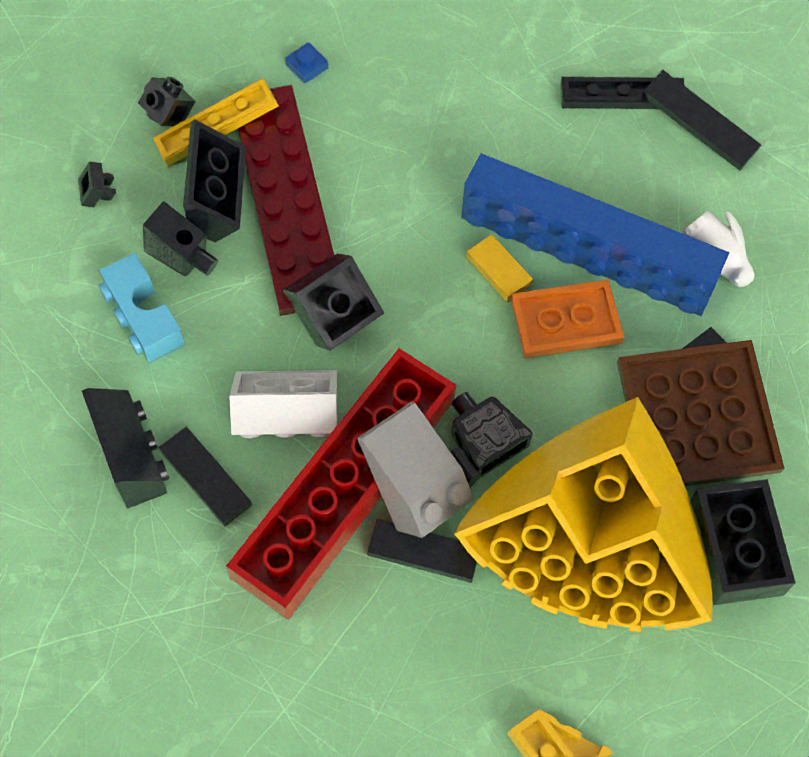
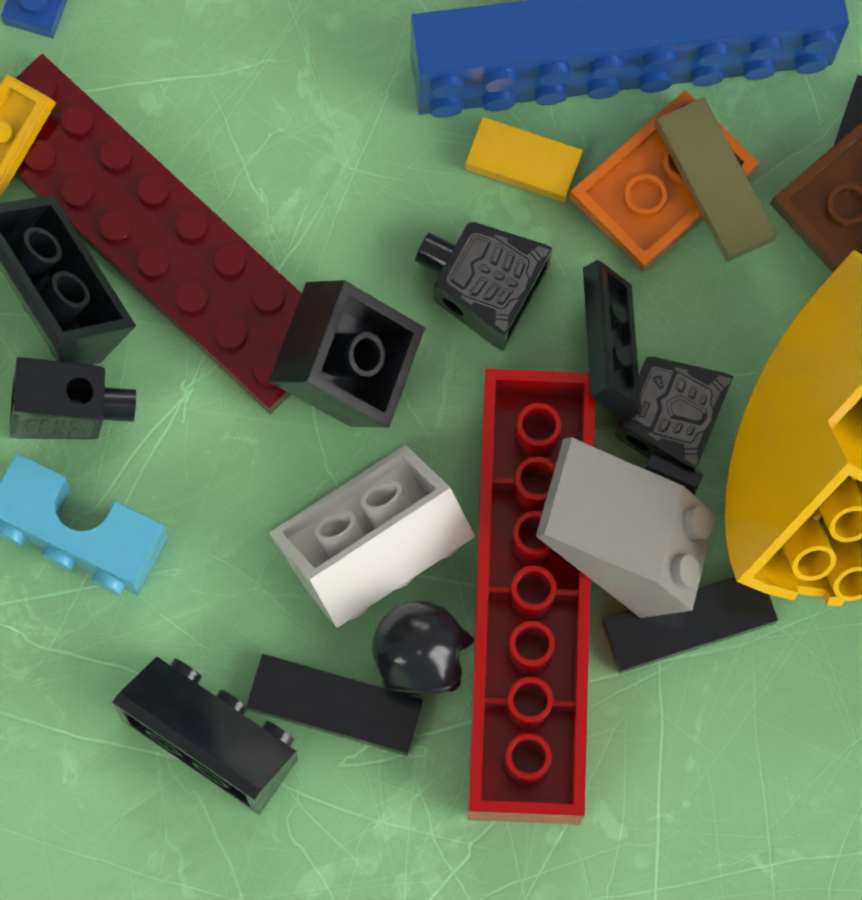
camera: 35 degrees left, 10 degrees up
(263, 467) = (419, 648): none -> black helmet
(437, 311) = (486, 277): none -> torso
(478, 376) = (611, 340): none -> black tile
(593, 331) = (715, 179): none -> olive tile

